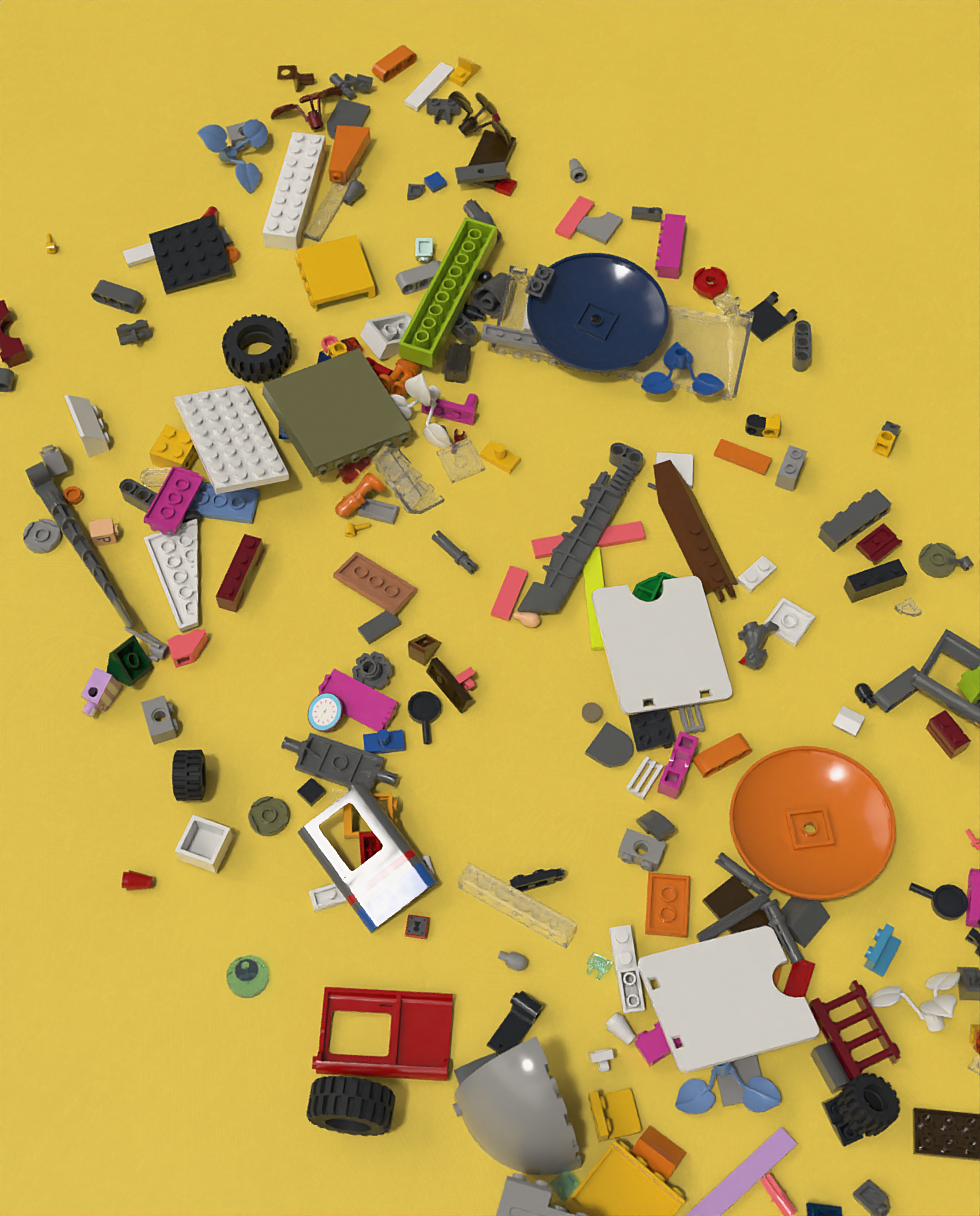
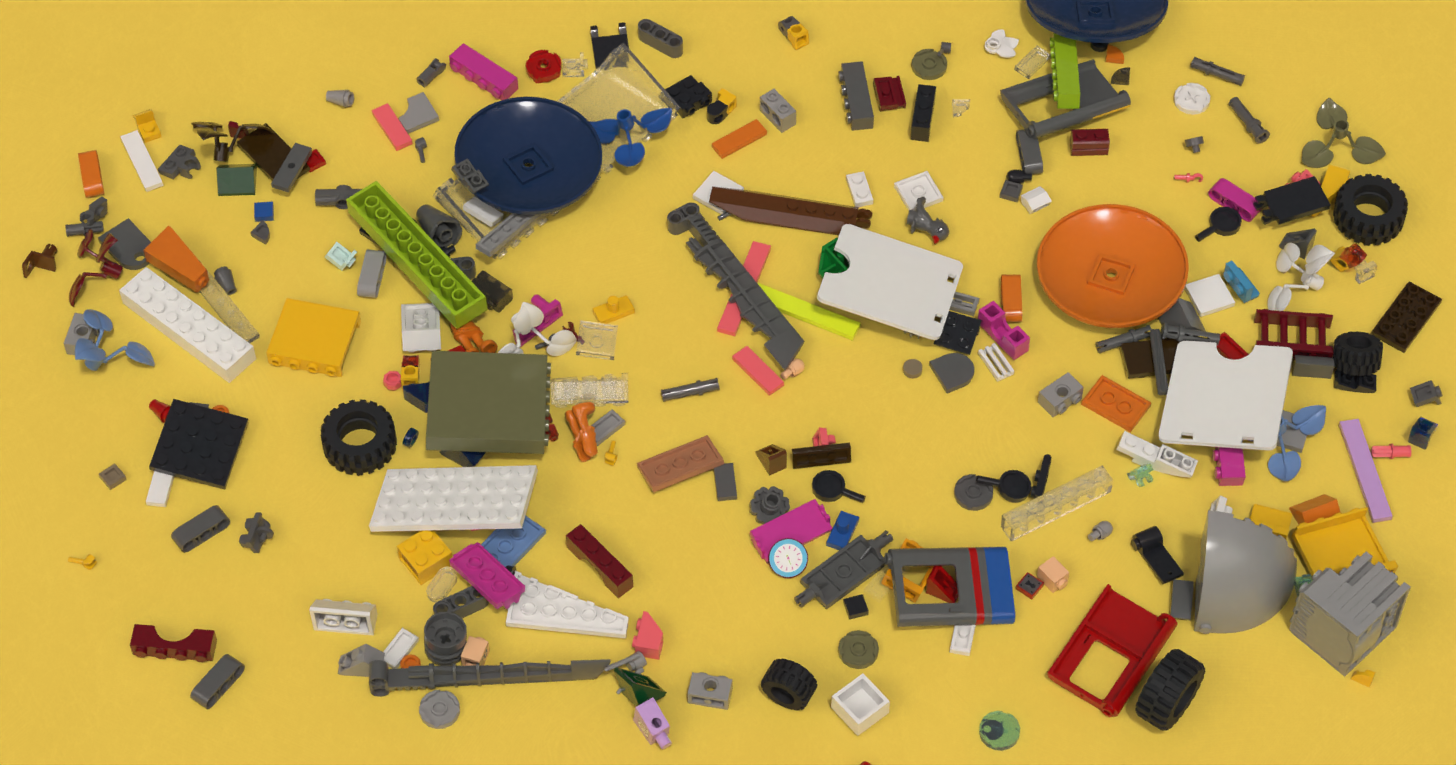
camera: 60 degrees left, 5 degrees down
(83, 479) = (399, 647): none -> white tile
(100, 500) = (445, 638): none -> dark grey wheel
(135, 221) = (112, 476): none -> dark tan tile
(437, 941) = (1053, 574): none -> light nougat brick
(452, 148) = (236, 179): none -> dark green slope
(490, 829) = (971, 494): none -> dark grey tile
(515, 857) = (1012, 485): none -> black piece
(569, 243) = (419, 145): none -> dark grey hand
(619, 1027) = (1199, 486): white cone -> none
(656, 824) = (1045, 371): dark grey slope -> none
(757, 396) = (690, 95): none -> black plate
(845, 696) = (1011, 191): none -> dark grey tile
(850, 929) = (1209, 295): none -> white tile

